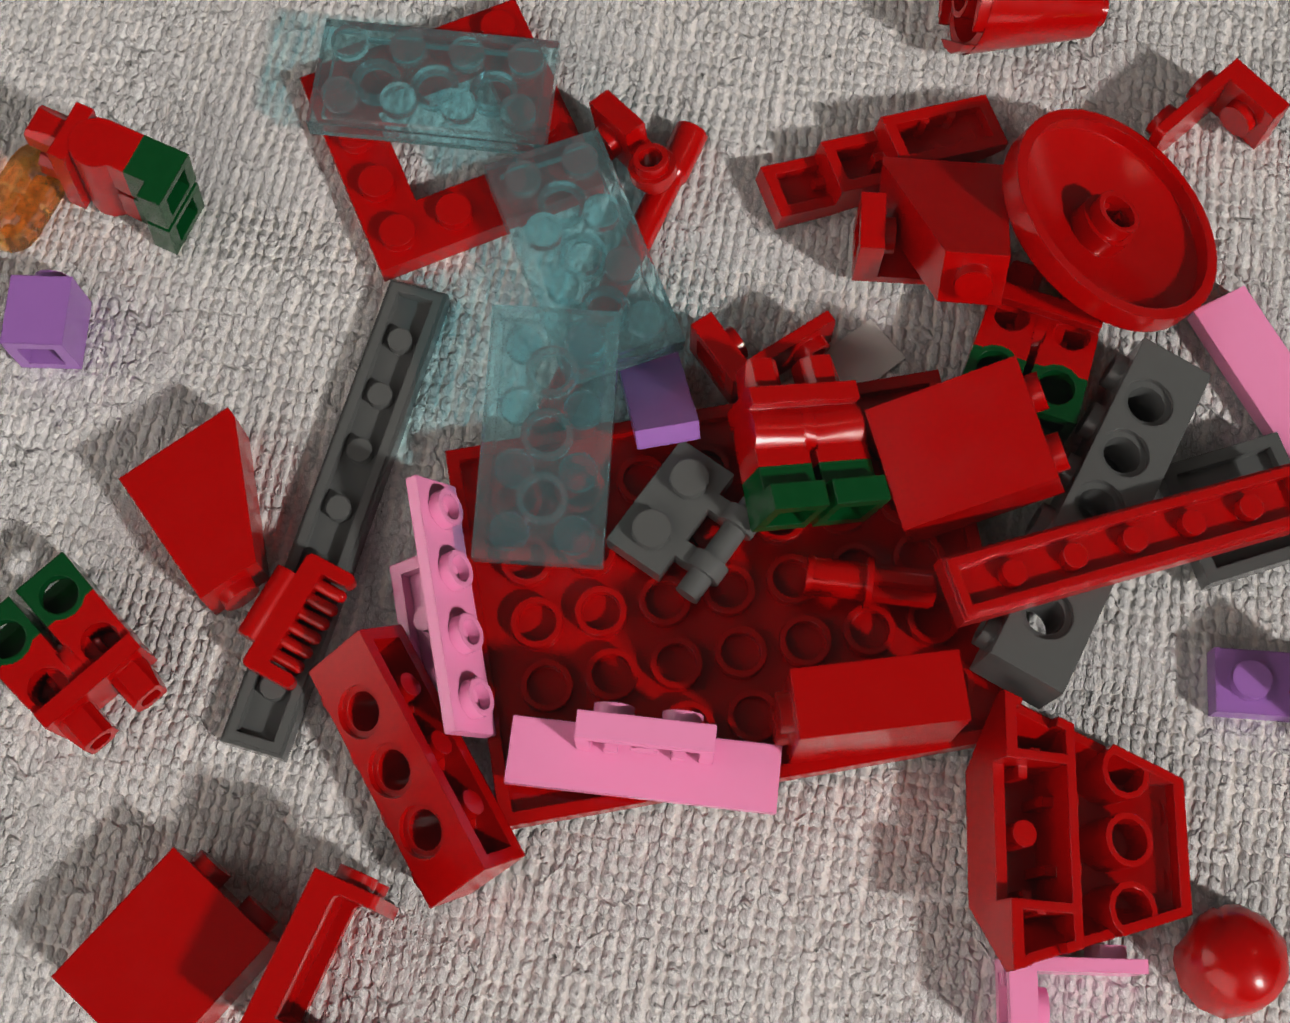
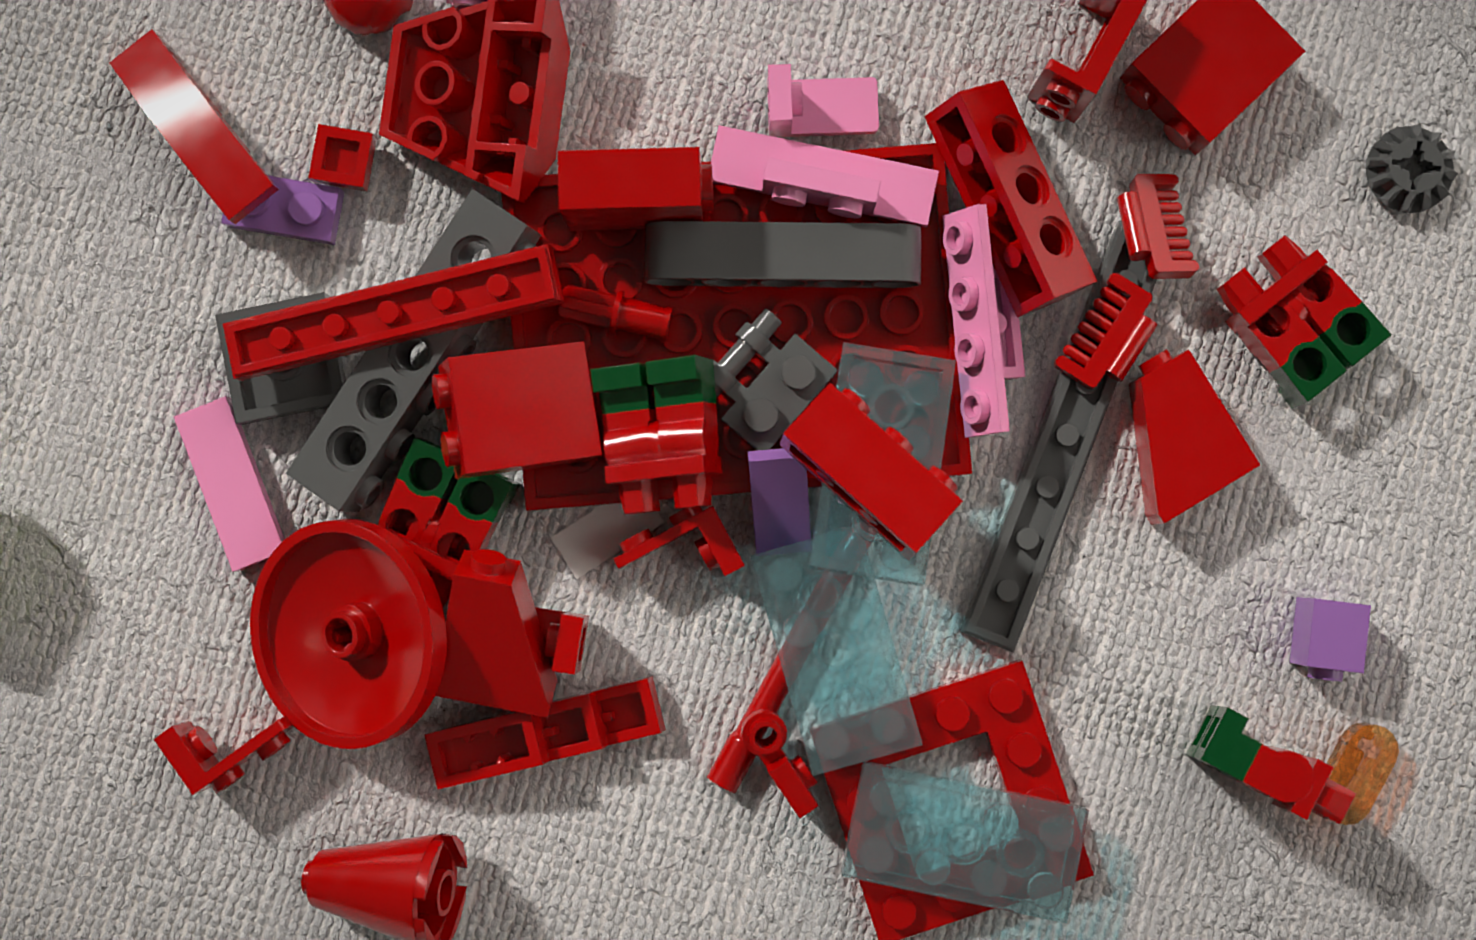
camera: 175 degrees left, 15 degrees up
(252, 747) = (1146, 231): none -> red piece
(560, 407) = (871, 469): none -> red brick
(653, 864) = (820, 105): none -> bright pink bracket
(673, 660) = (782, 254): none -> dark grey beam
(1220, 746) = (342, 157): none -> red plate

